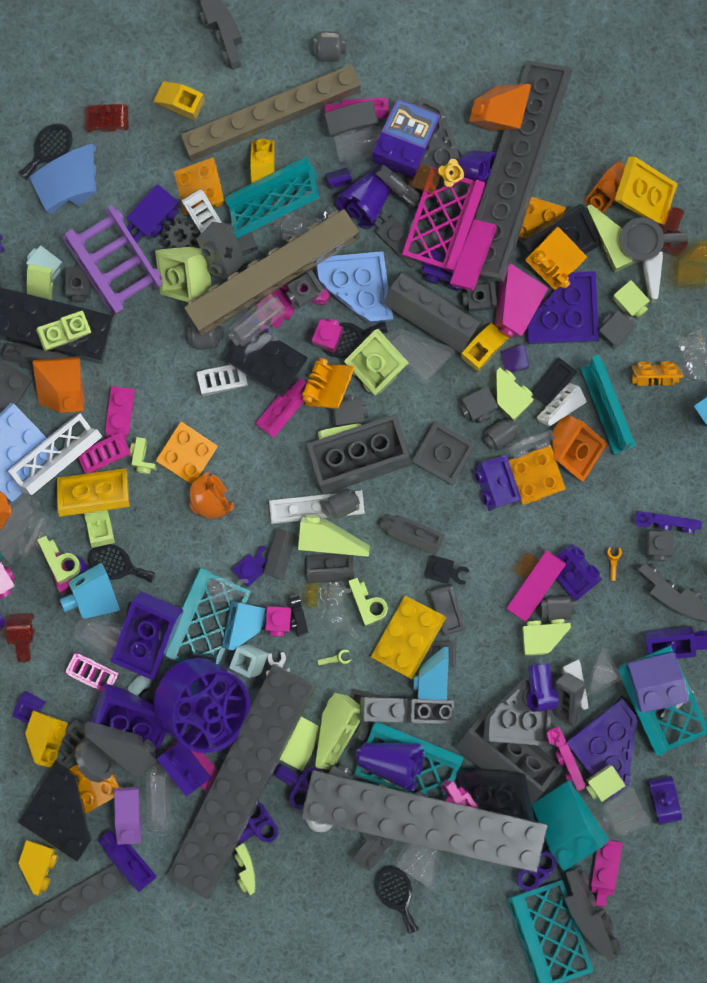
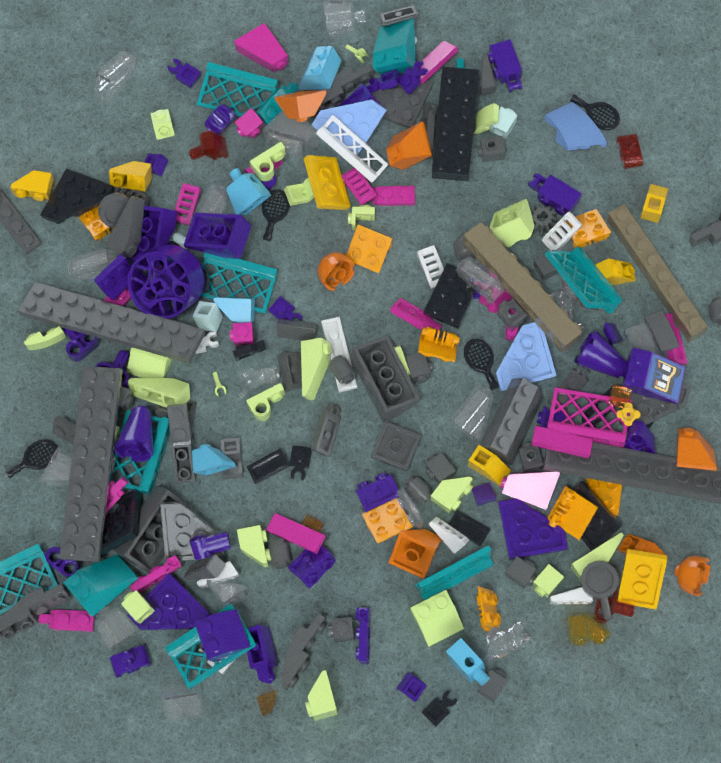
camera: 85 degrees right, 10 degrees down
(63, 331) = (449, 137): yellowish green slope -> none
(100, 280) = (495, 162): medium lavender fence -> none
(127, 861) = (43, 251): dark purple hinge -> none
(128, 815) = (76, 243): medium lavender slope -> none
(220, 249) = (533, 244): dark grey brick -> none
(222, 589) = (262, 290): clear plate -> none
(313, 595) = (266, 360): clear yellow tile -> none
(327, 335) = (478, 339): dark pink brick -> none
(376, 362) = (461, 380): yellowish green plate -> none
(403, 189) = (612, 376): dark grey piece -> none
(408, 637) = (241, 437): yellow plate -> none
(613, 562) = (323, 596): light orange hand -> none
(644, 135) = (693, 574): none -> orange cylinder
(657, 434) = (437, 618): none -> yellowish green slope

